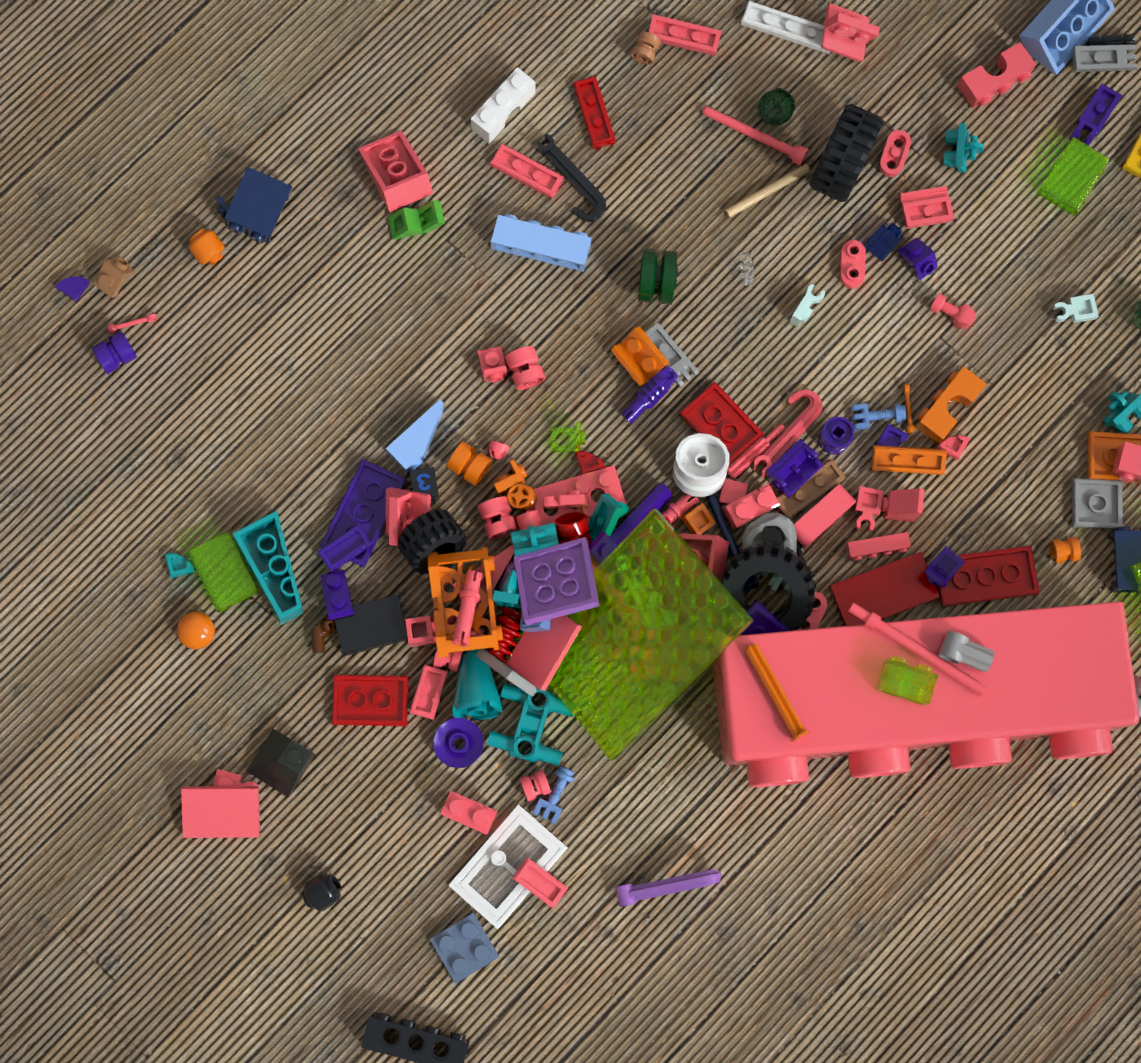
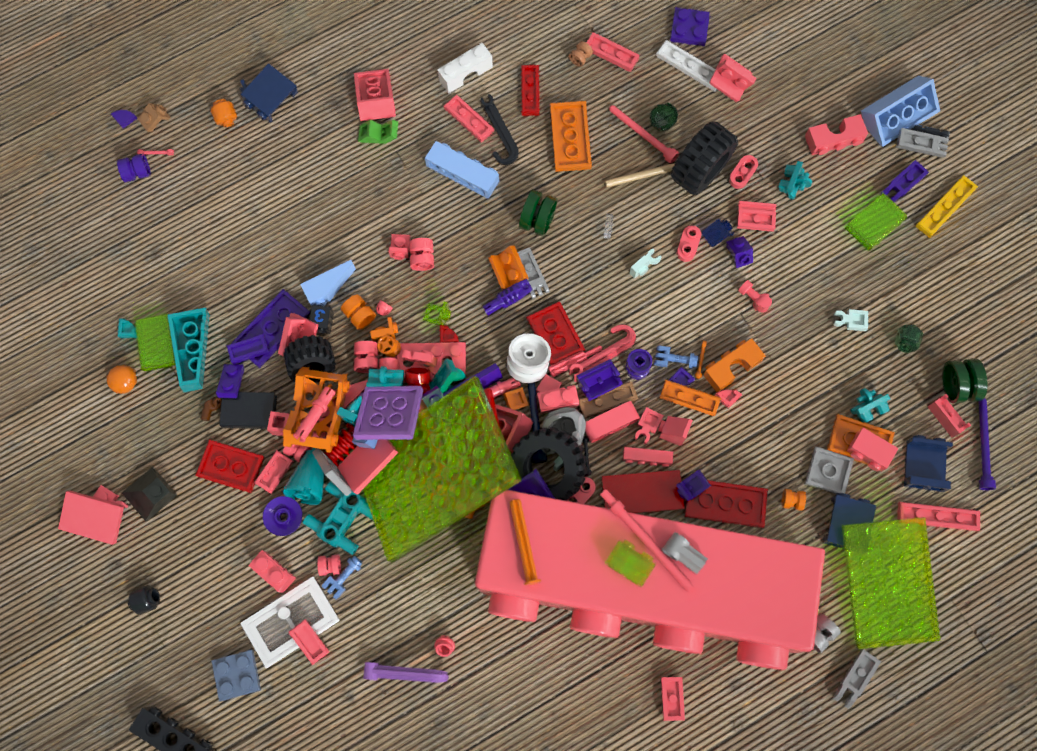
camera: 25 degrees right, 5 degrees down
(665, 162) = (570, 136): none -> orange plate
(704, 840) = (444, 645): none -> coral plate
(988, 823) = (672, 698): none -> coral plate

